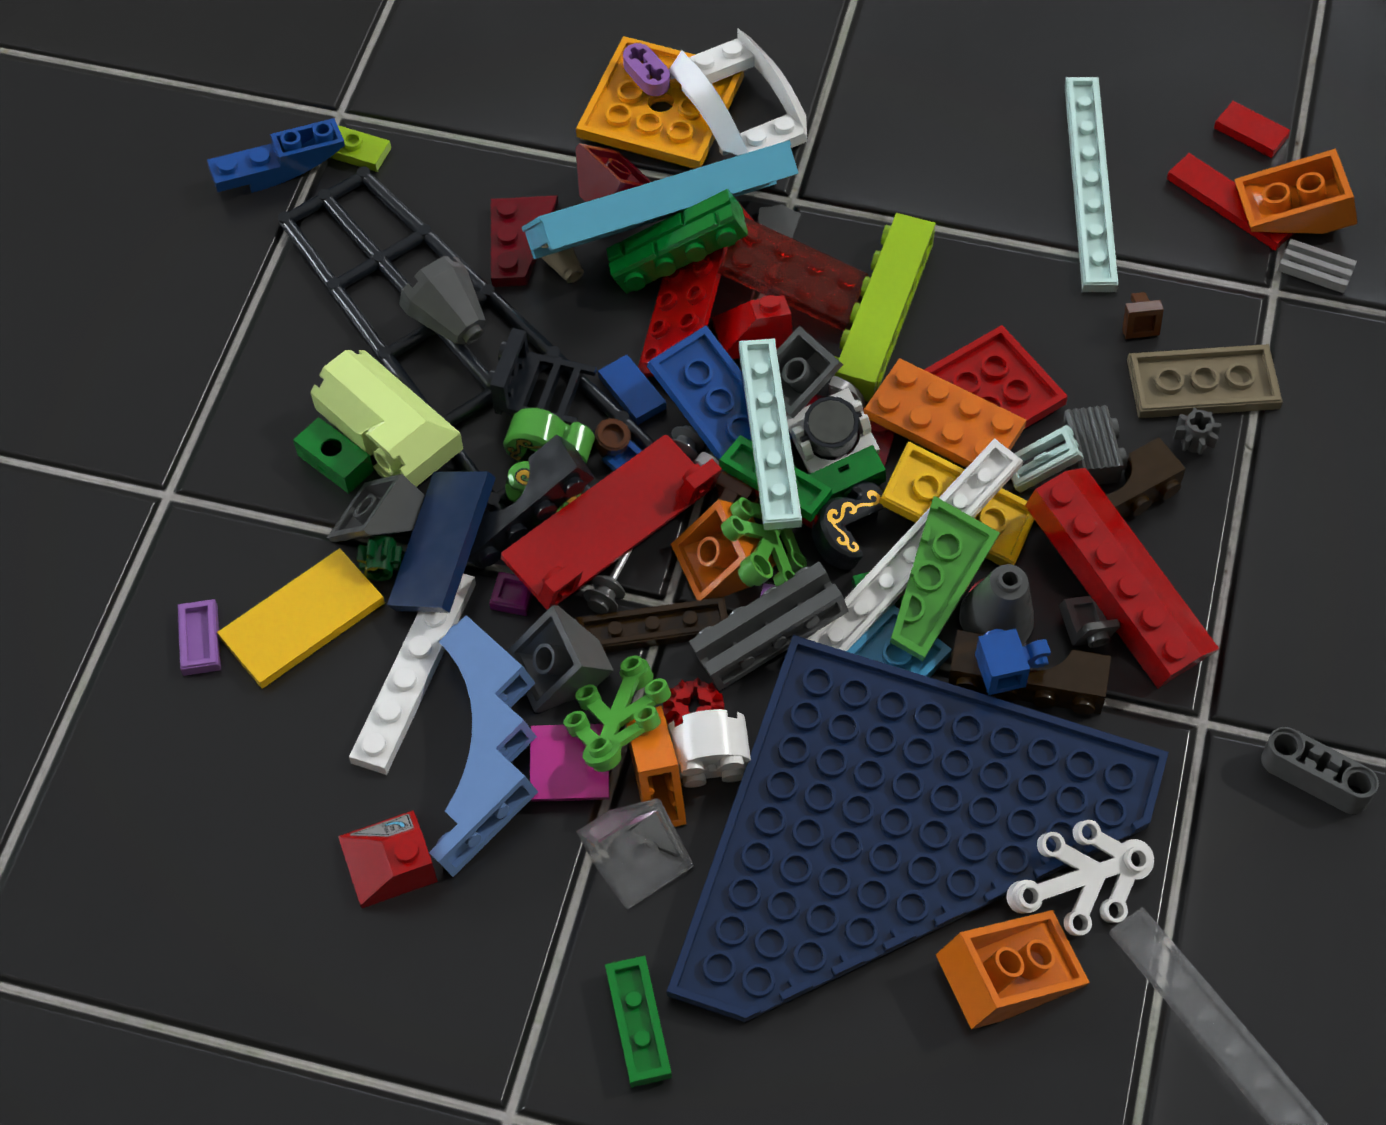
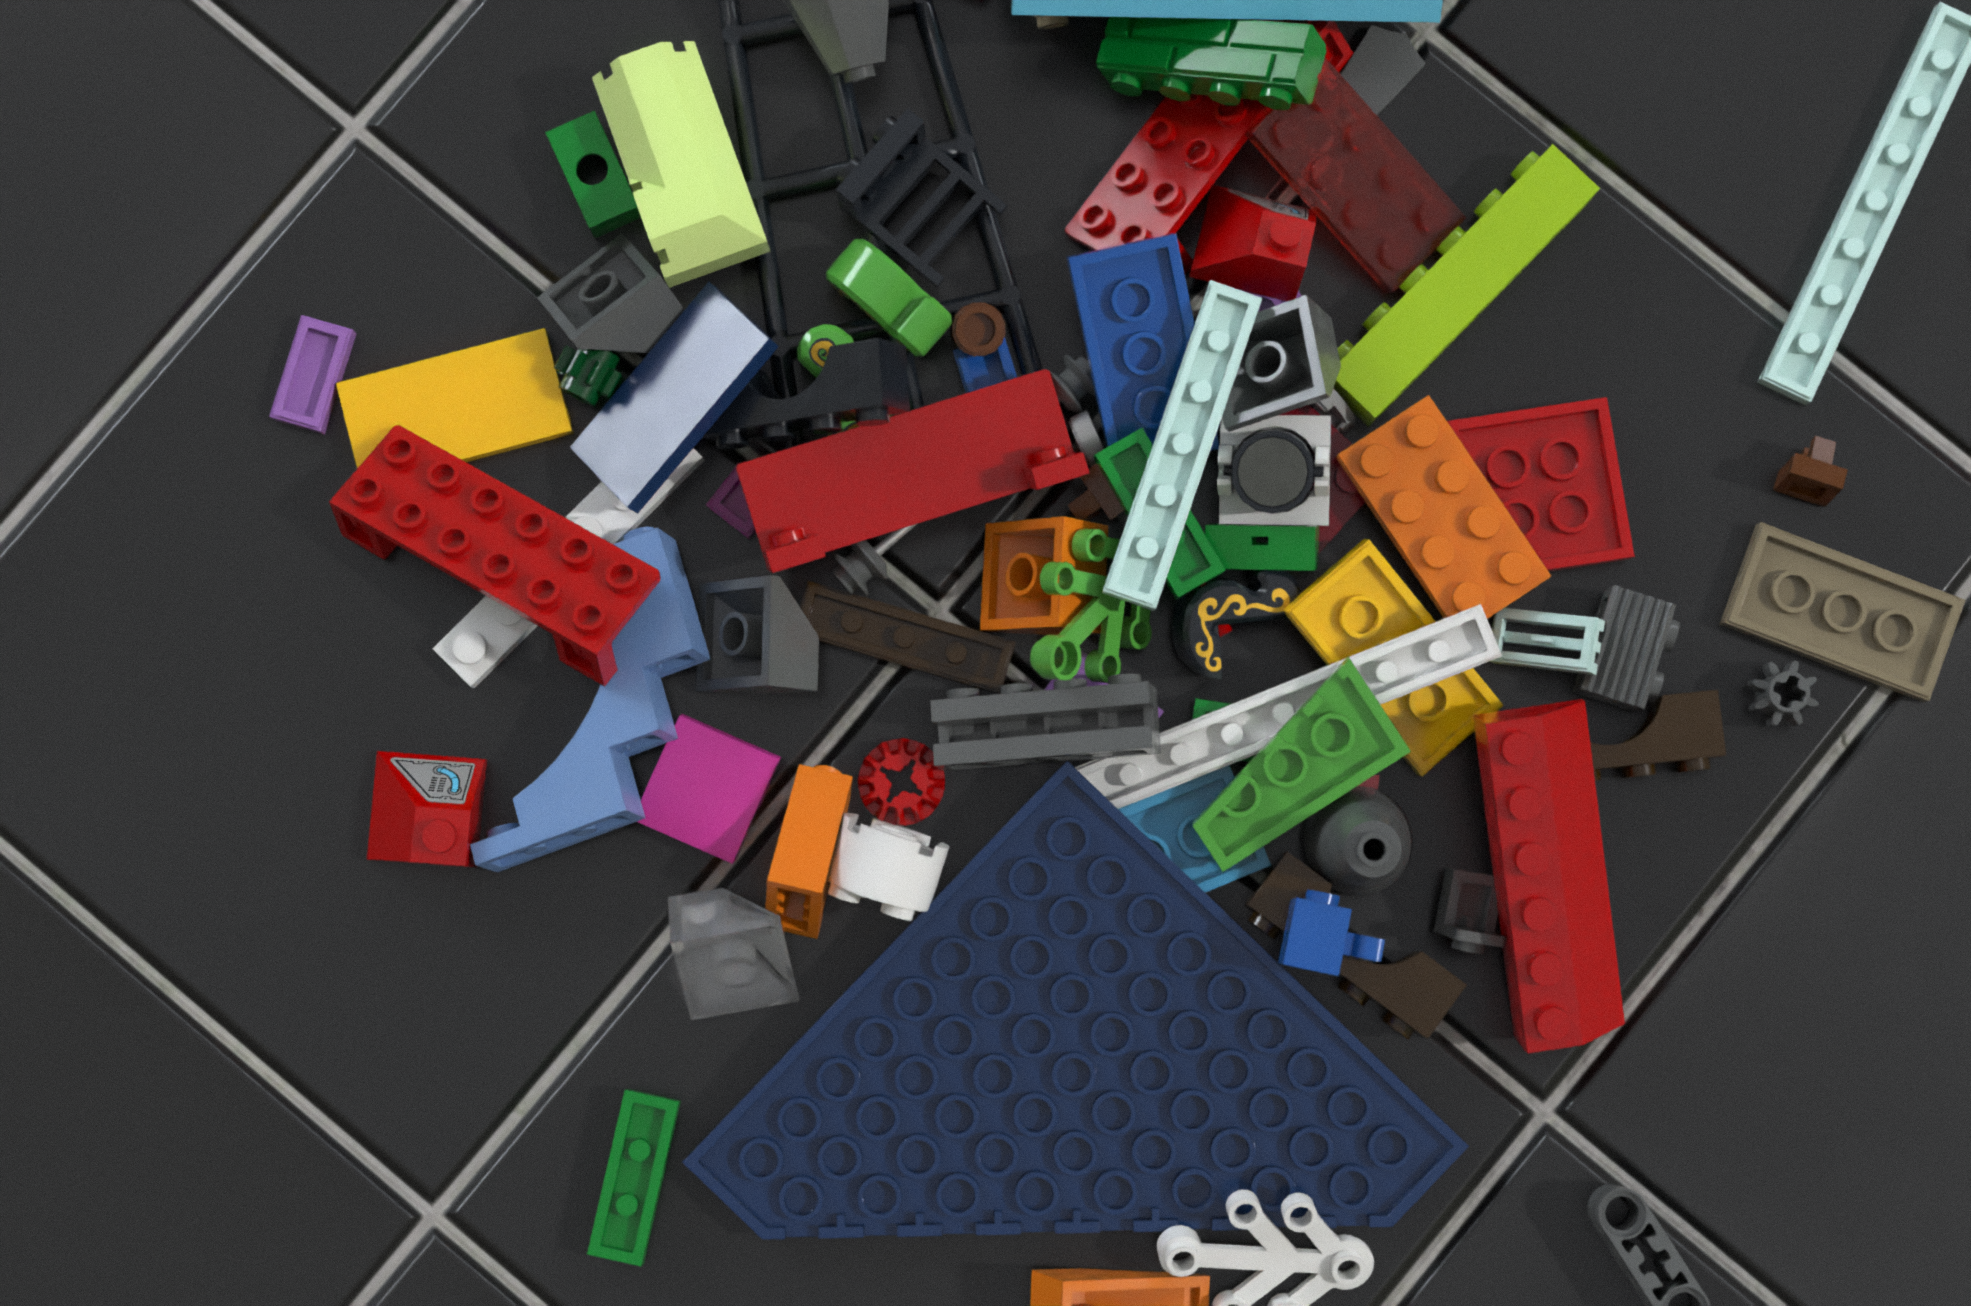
camera: 25 degrees right, 25 degrees up
(365, 661) = (497, 545): none -> red bracket
(604, 751) = (790, 765): bright green plant -> none
(632, 389) = (1043, 251): blue tile -> none

